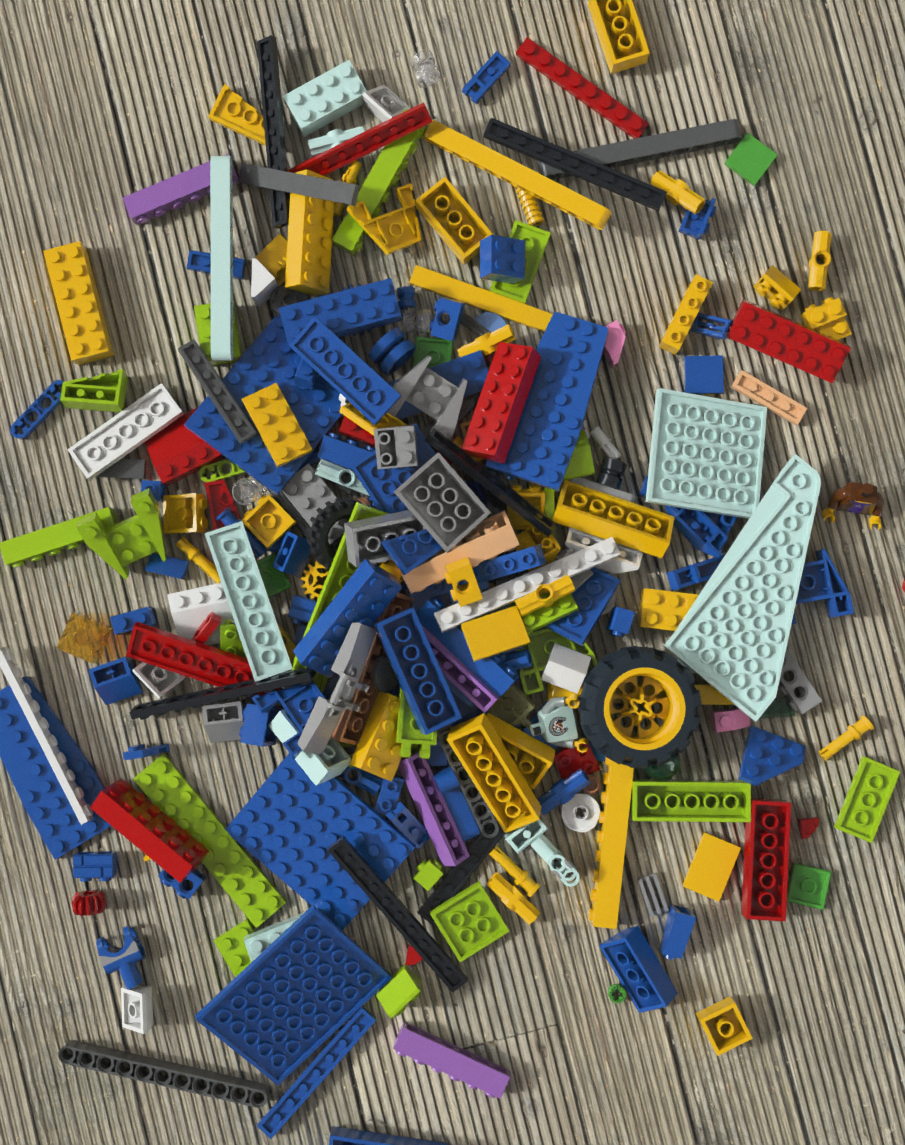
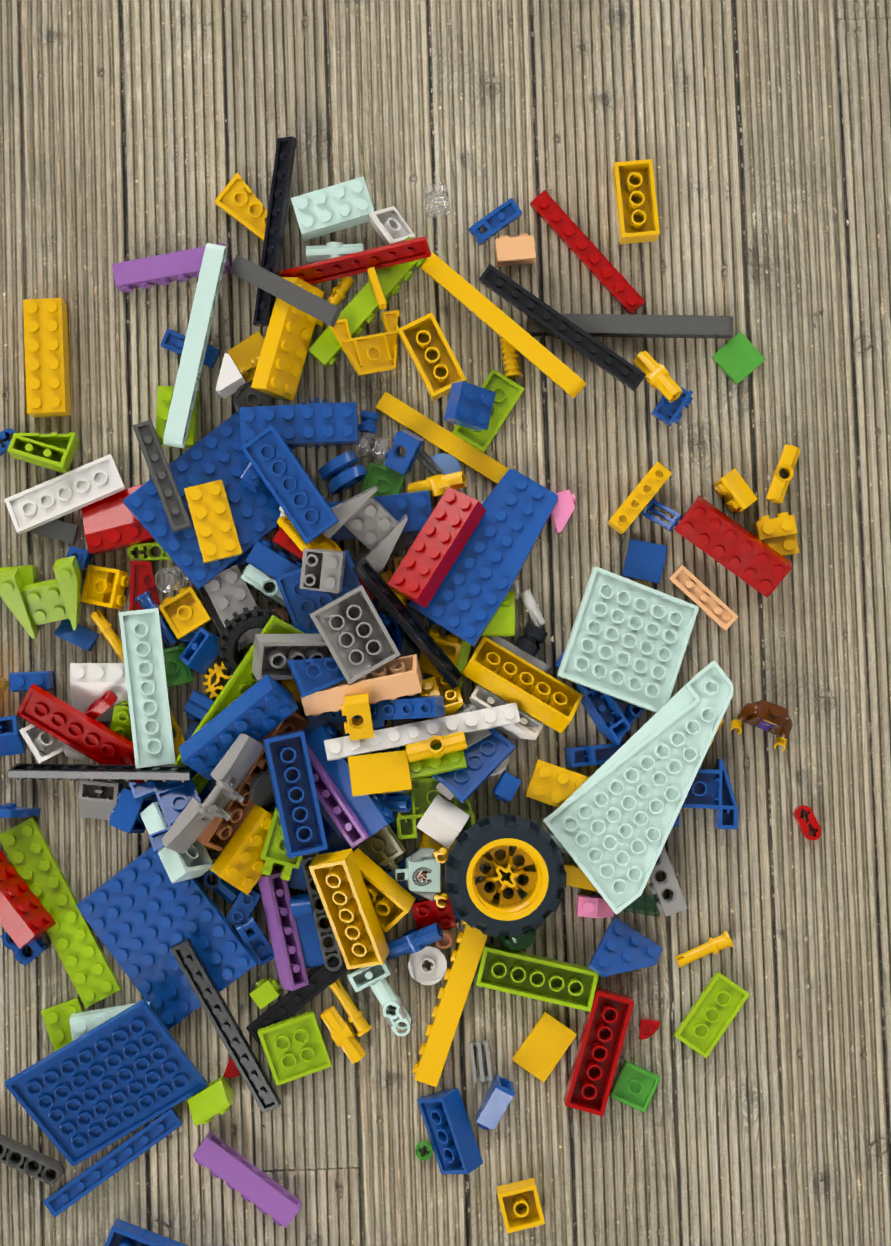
camera: 10 degrees right, 0 degrees up
(190, 682) = (73, 754): none -> light grey tile
(386, 164) = (376, 288): none -> yellow tile
(511, 101) = (515, 250): none -> light nougat brick
(561, 638) = (445, 791): none -> light grey tile

